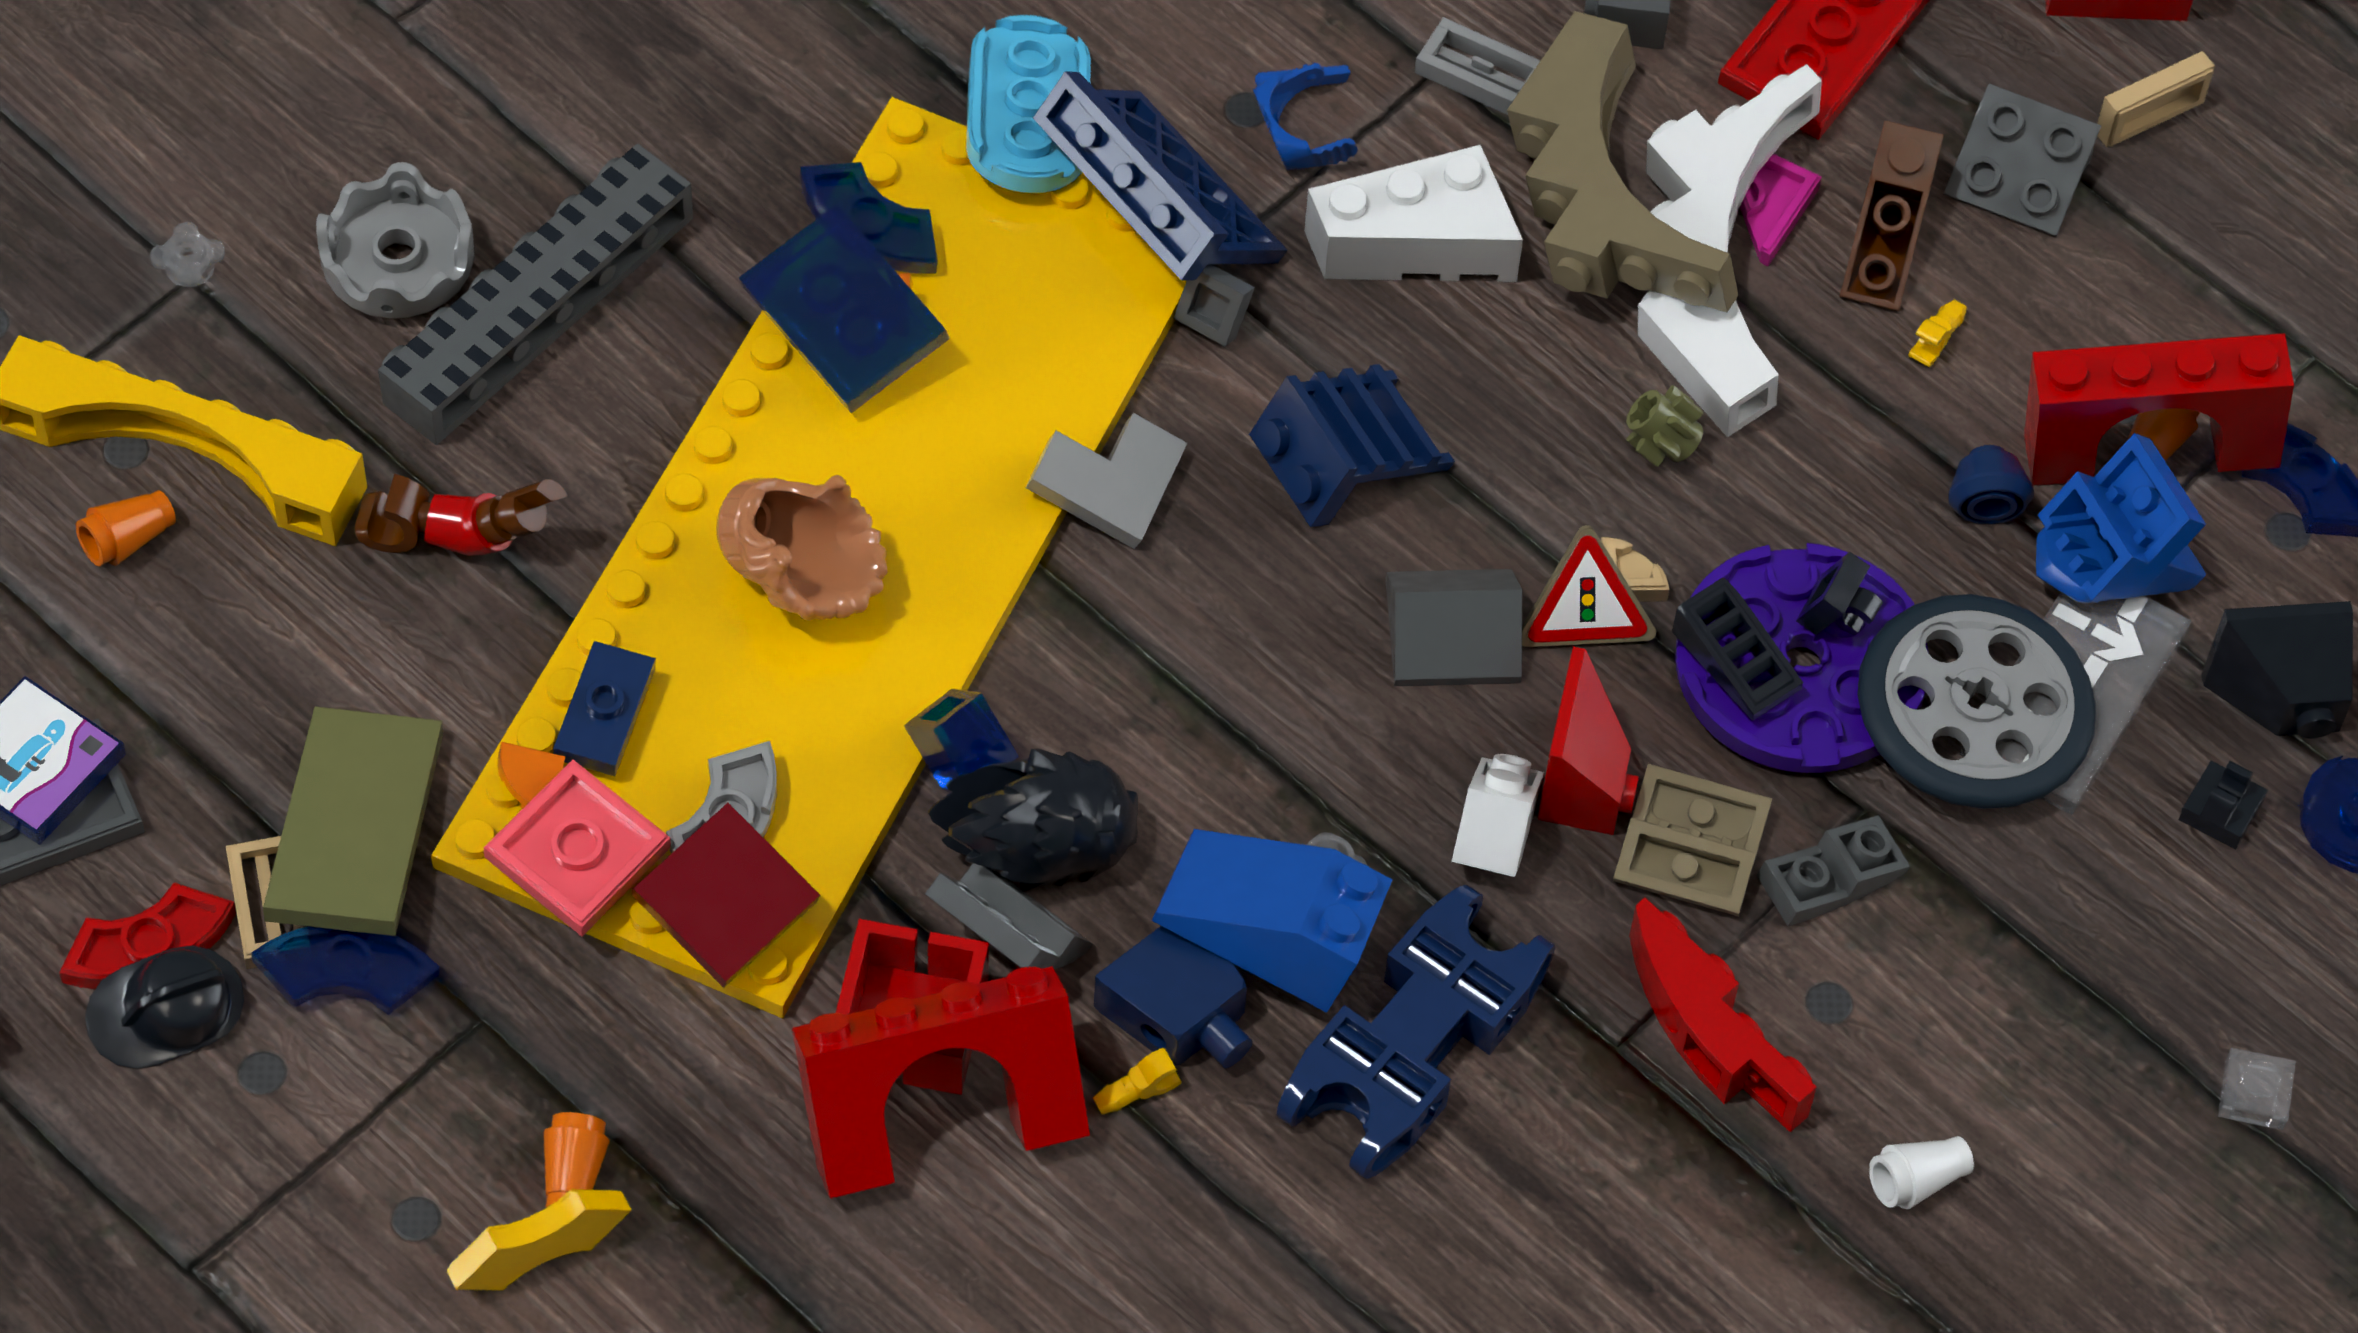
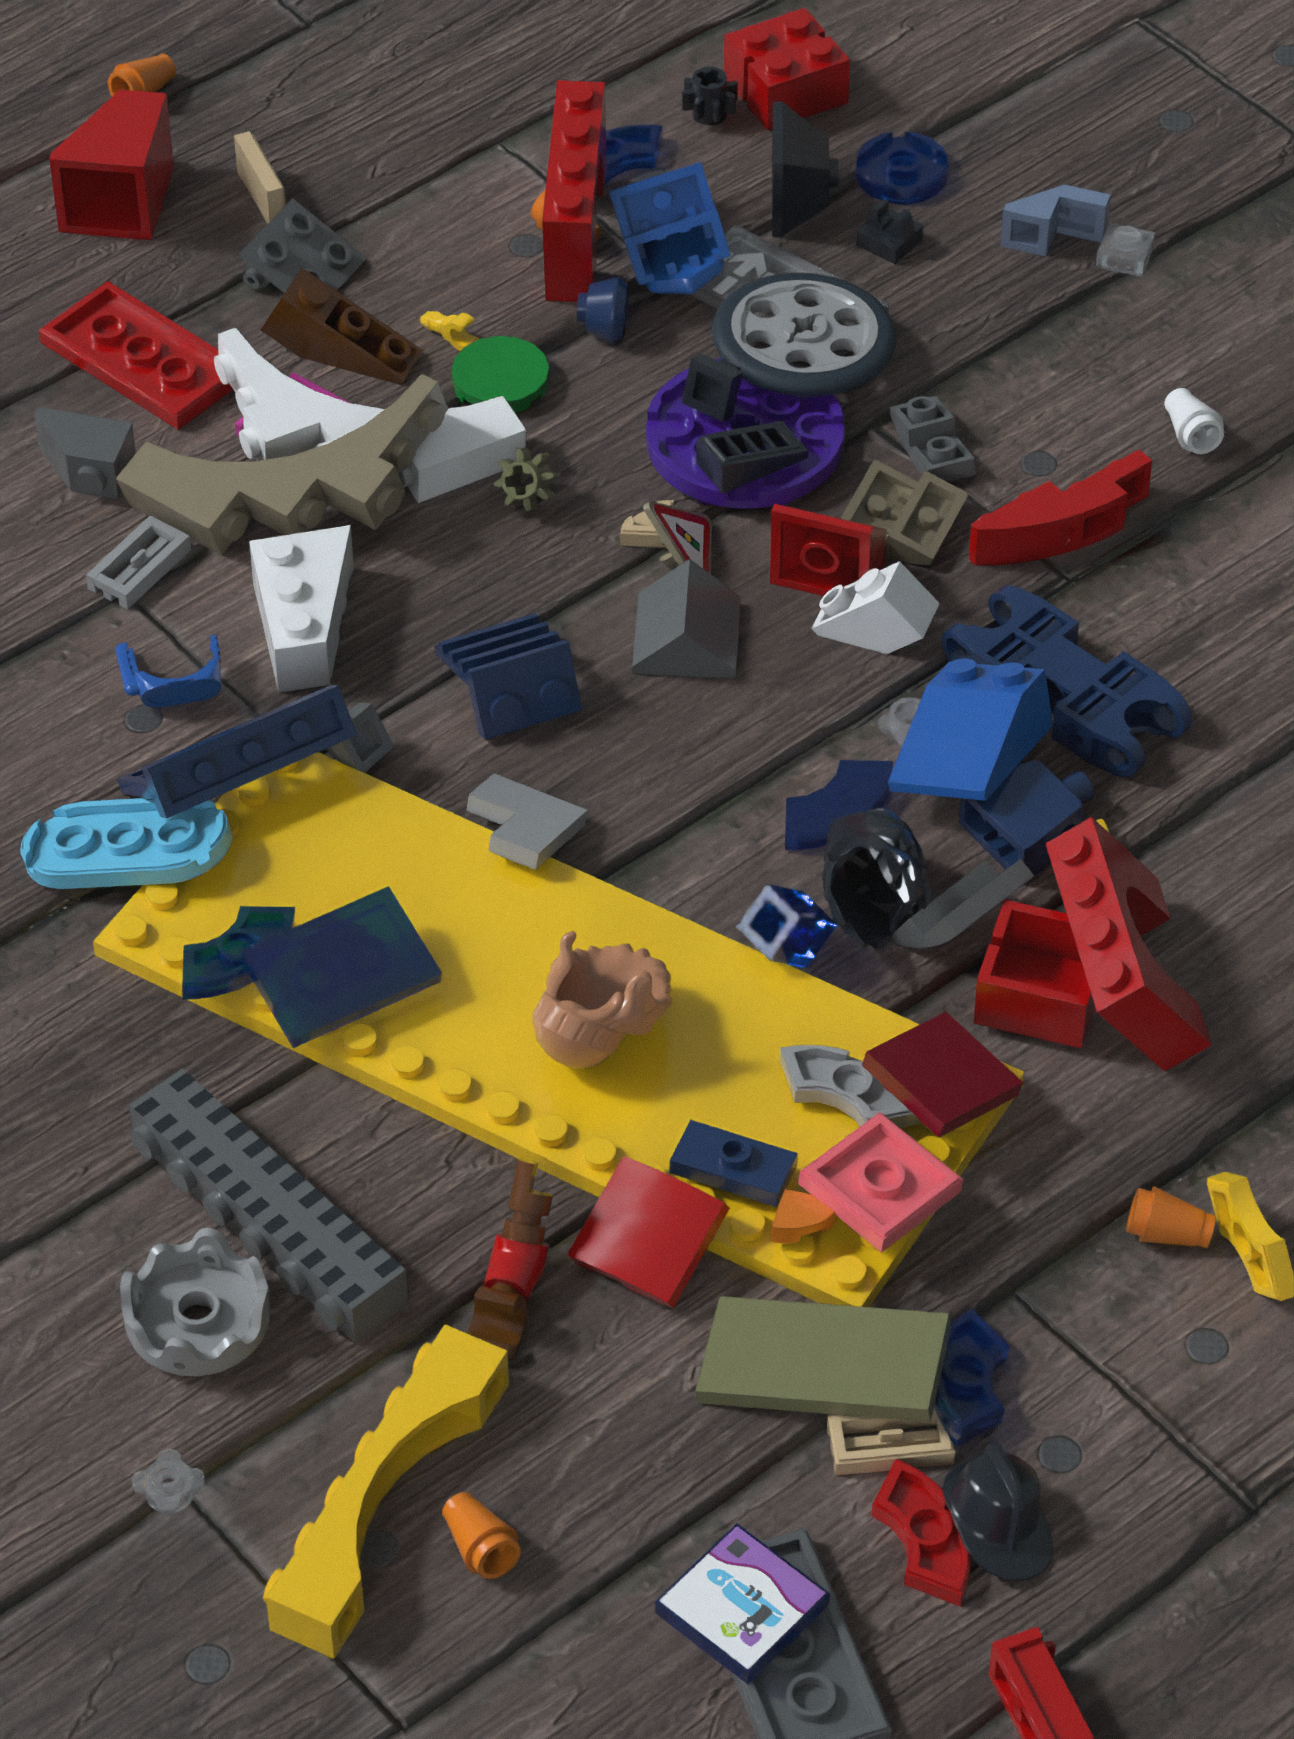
camera: 80 degrees left, 10 degrees down
(510, 638) = (648, 1231): none -> red slope
(1179, 794) = (854, 788): none -> clear blue tile
(1865, 392) = (501, 368): none -> green tile
(2279, 977) = (1068, 210): none -> sand blue slope

